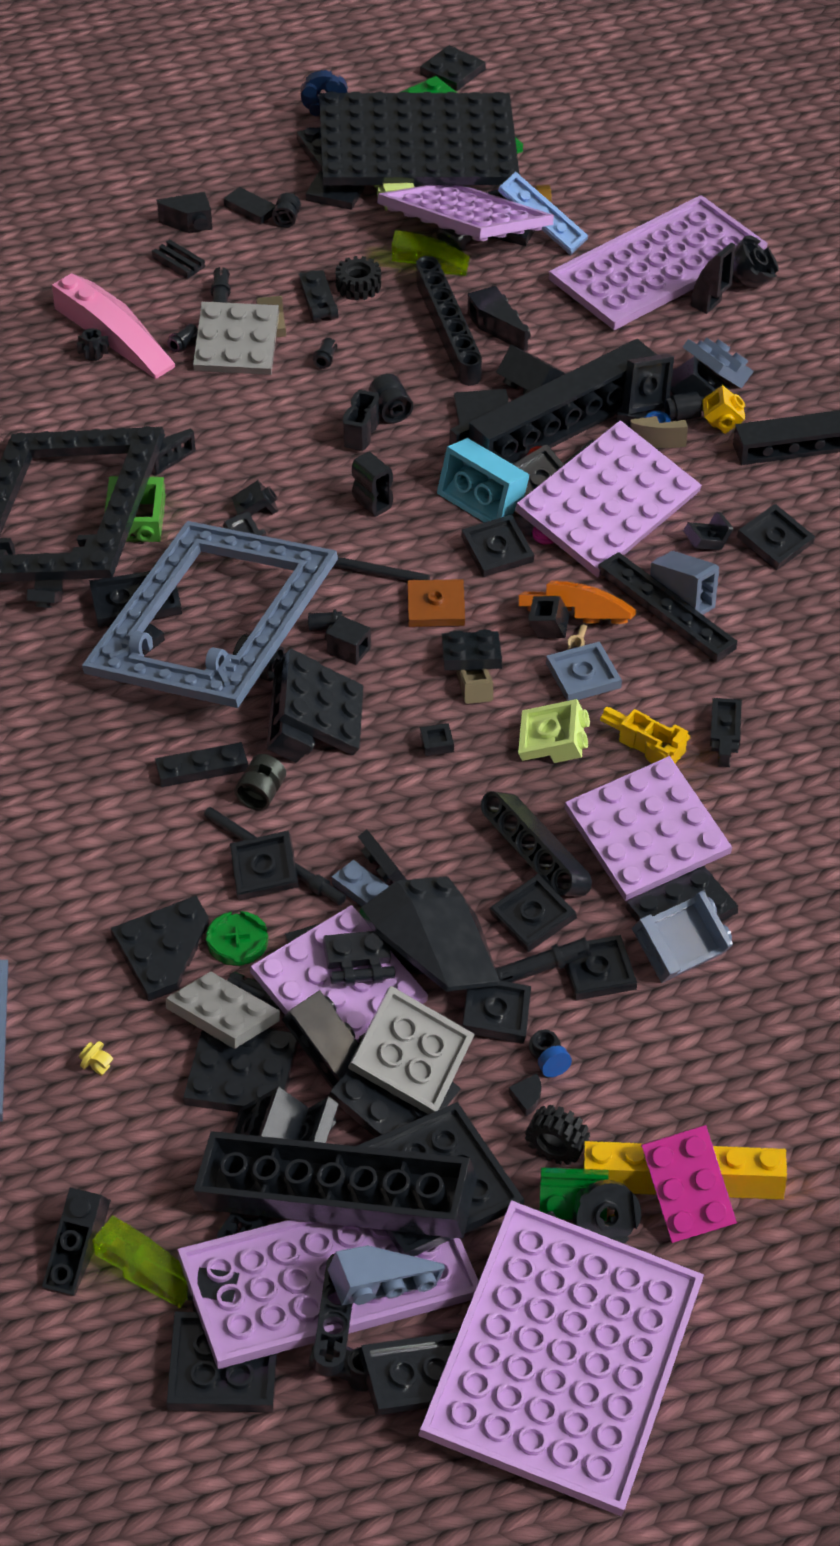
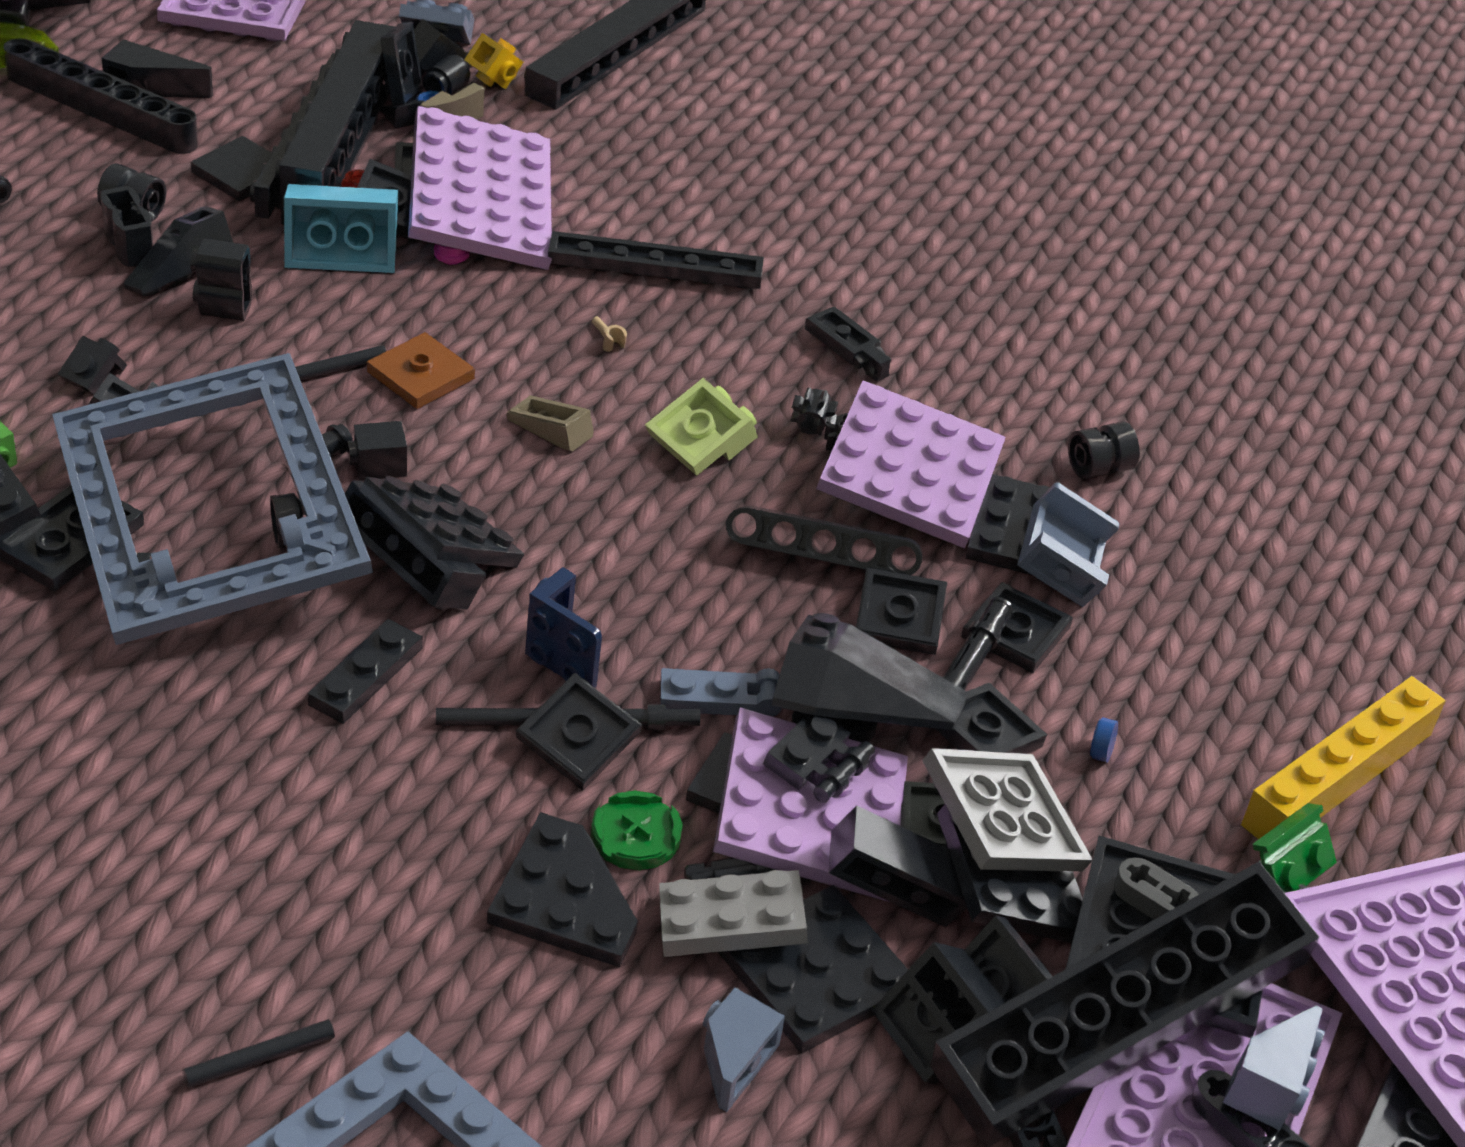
camera: 50 degrees left, 5 degrees down
(96, 1058) = (653, 1069): light yellow plate -> none
(146, 1075) = (739, 1043): none -> sand blue slope
(260, 782) = (468, 645): pearl dark grey wheel -> none
(315, 796) = (558, 635): none -> dark blue bracket
(374, 852) = (708, 651): black plate -> none
(388, 445) = (172, 252): none -> black slope
(436, 739) = (594, 499): black plate -> none
(446, 1133) = (1155, 892): none -> dark grey beam
(471, 650) = (522, 394): black plate -> none
(497, 545) = (418, 284): black plate -> none
(526, 370) = (256, 107): black slope -> none
(527, 1093) = (1116, 791): black tile -> none
(542, 1038) = (1071, 731): black plate -> none
(548, 617) = (567, 320): black brick -> none
(557, 1134) = (1213, 804): black tyre -> none
(583, 671) = (655, 358): sand blue plate -> none
(587, 601) = (573, 290): orange slope -> none
(616, 1197) = (1348, 842): black plate -> none
(634, 758) = (813, 411): none -> black gear
(647, 734) = (780, 381): yellow piece -> none
(688, 578) = (653, 218): sand blue slope -> none
(688, 1183) = (1385, 765): dark pink plate -> none
(709, 535) = (615, 175): black bracket -> none
(775, 536) = (674, 153): black plate -> none
(796, 894) = (1103, 450): none -> black wheel

